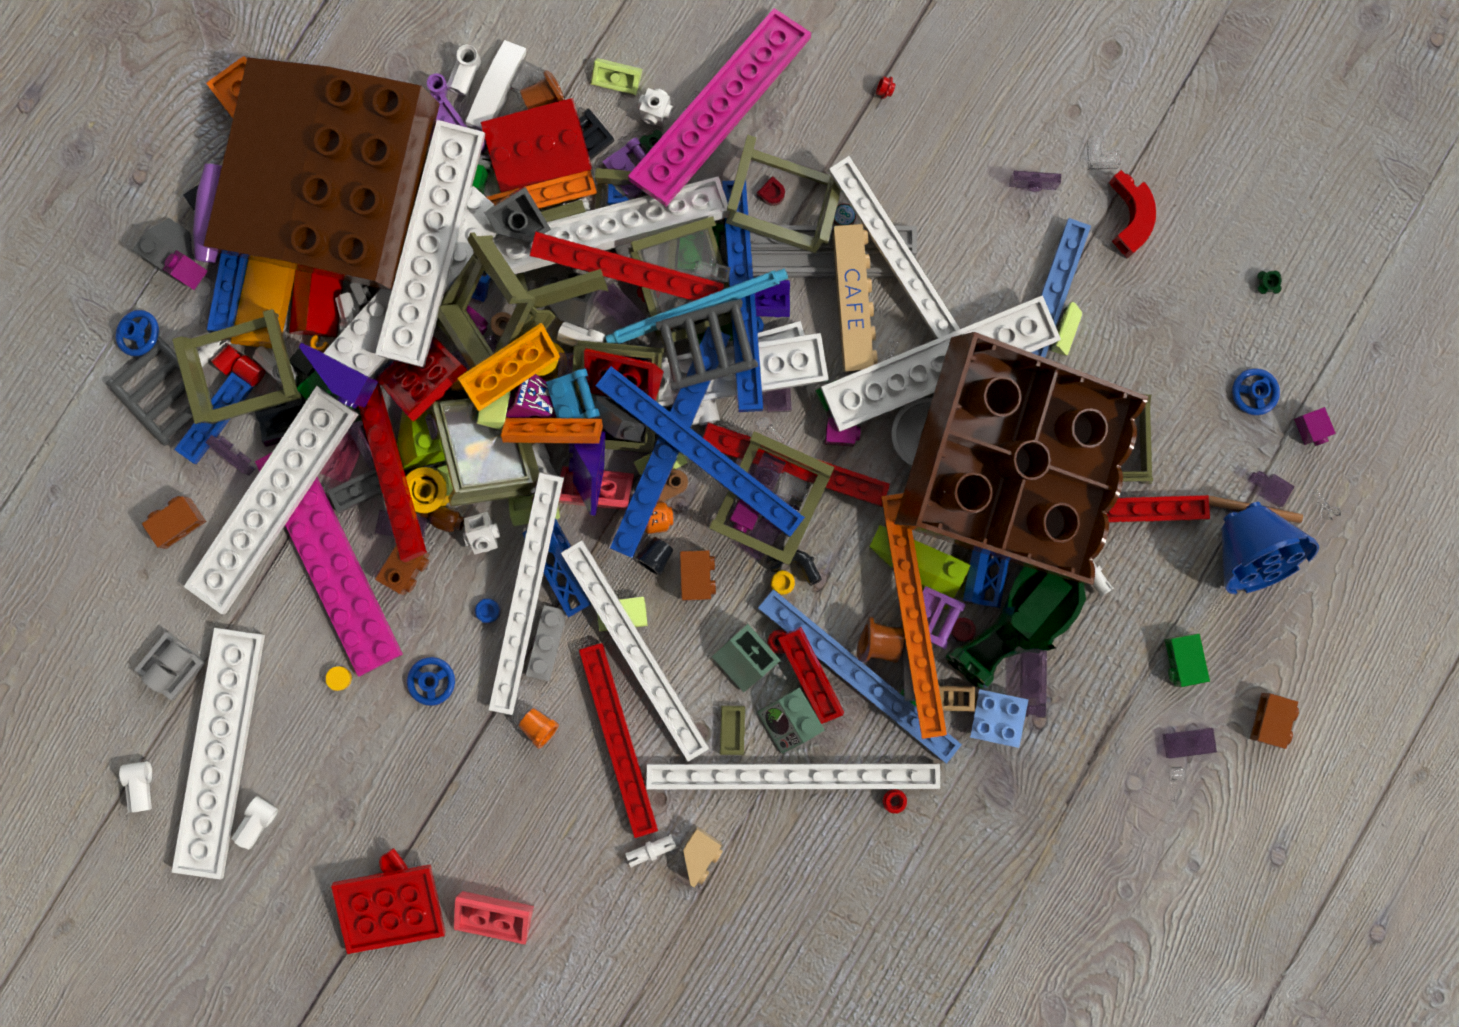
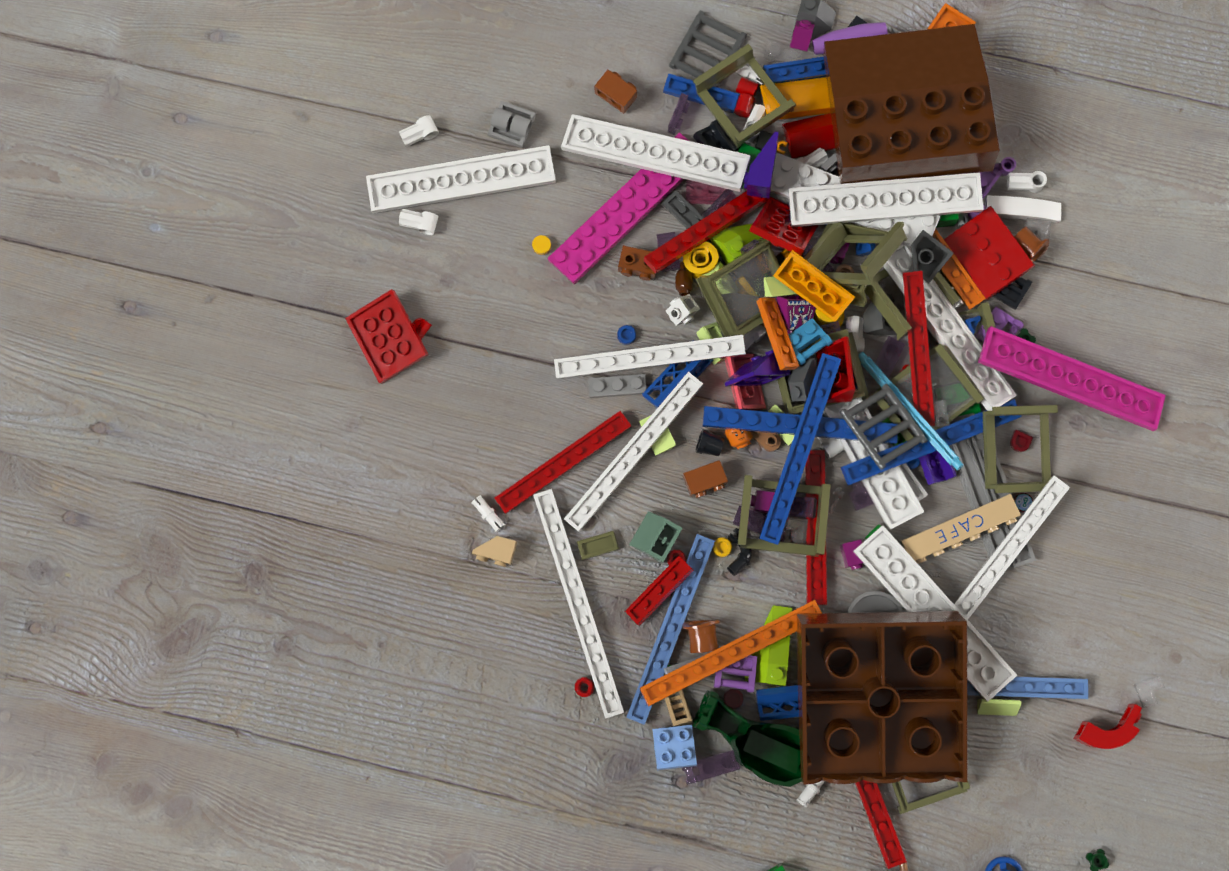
camera: 75 degrees right, 5 degrees down
(135, 331) = (744, 15): blue piece -> none
(431, 699) = (561, 304): blue piece -> none
(492, 917) = (403, 413): coral slope -> none
(538, 727) = (552, 400): orange piece -> none
(616, 76) = (1065, 294): yellowish green slope -> none
(655, 114) = (1046, 331): white brick -> none
(790, 720) = (620, 586): sand green slope -> none
(885, 87) = (1136, 502): red plate -> none
(1035, 180) = (1107, 643): clear purple plate -> none

